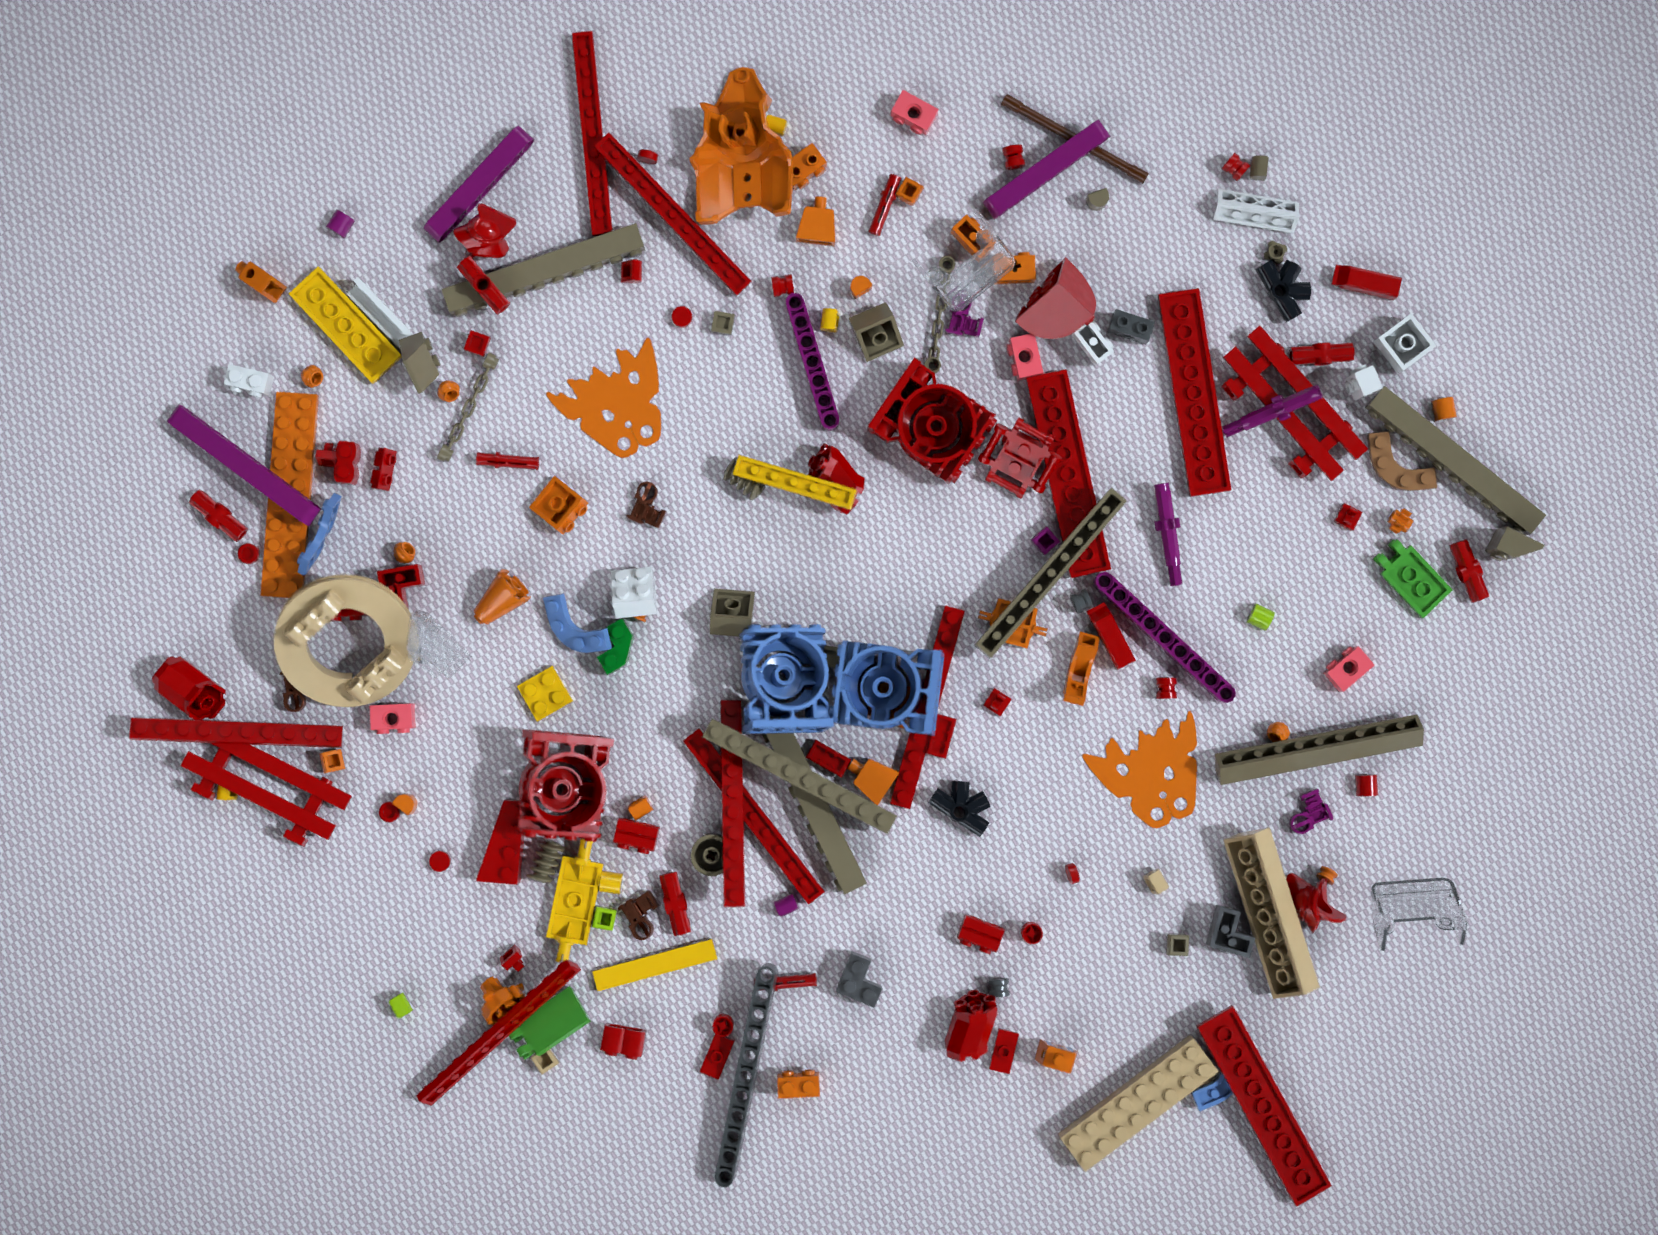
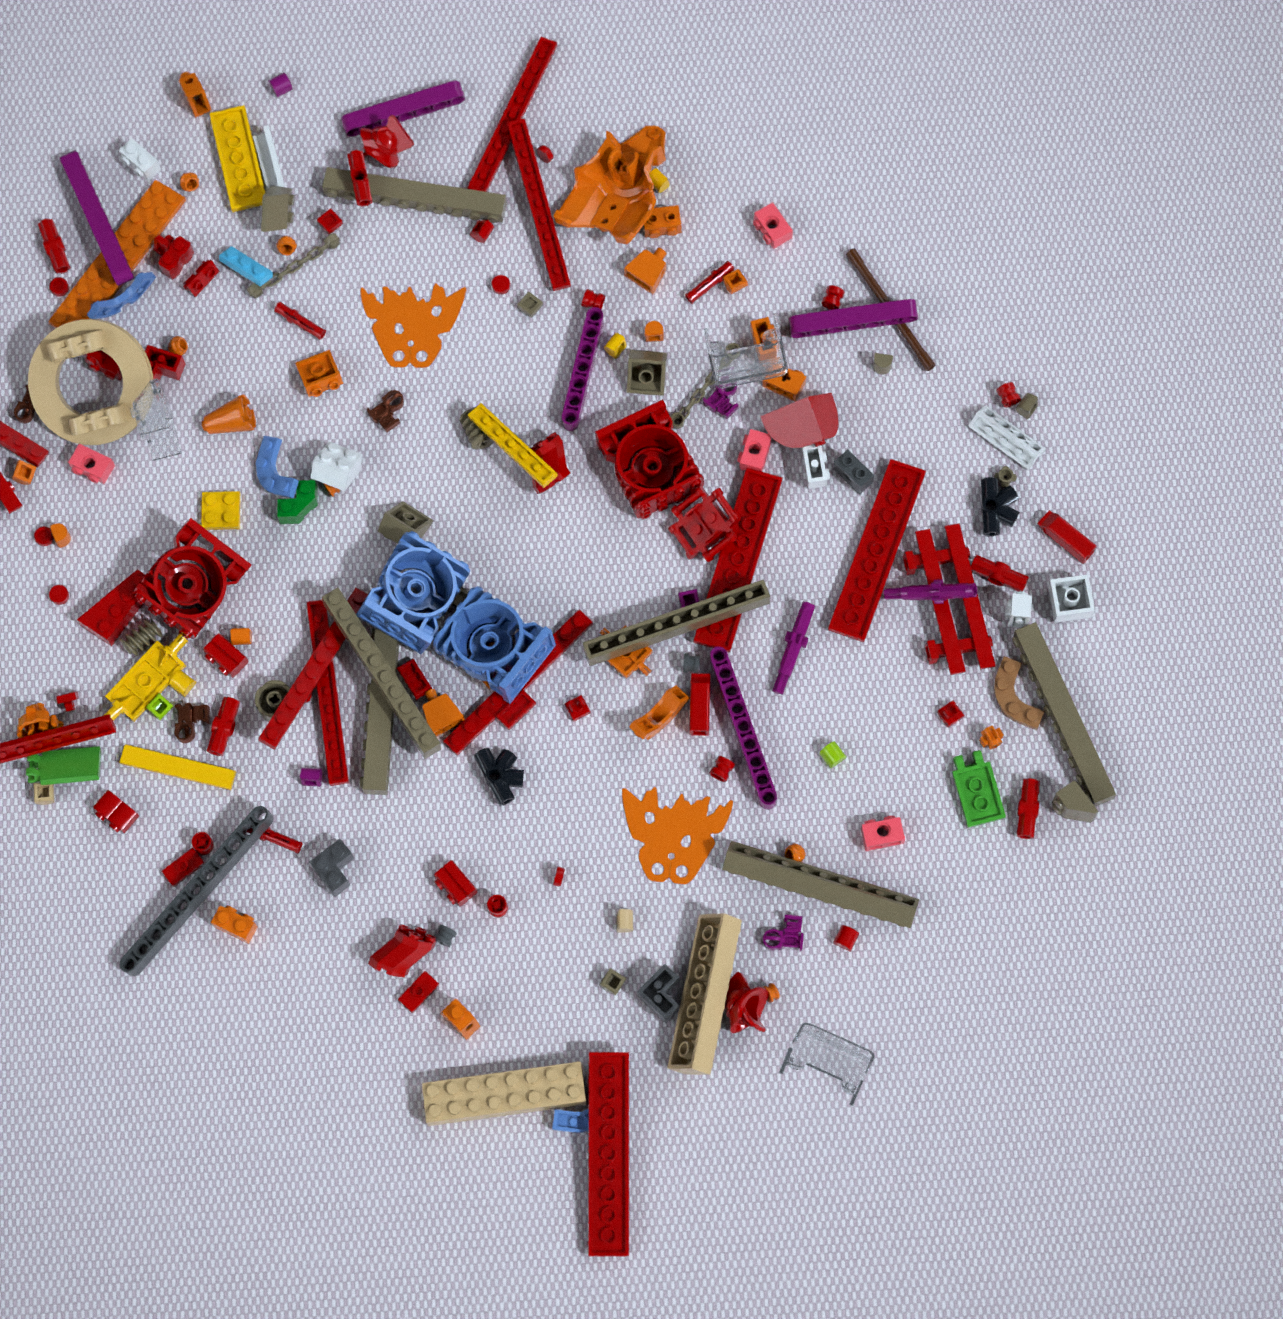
camera: 30 degrees right, 15 degrees down
(421, 434) = (245, 266): none -> medium azure plate
(1444, 408) = (1078, 669): orange brick -> none

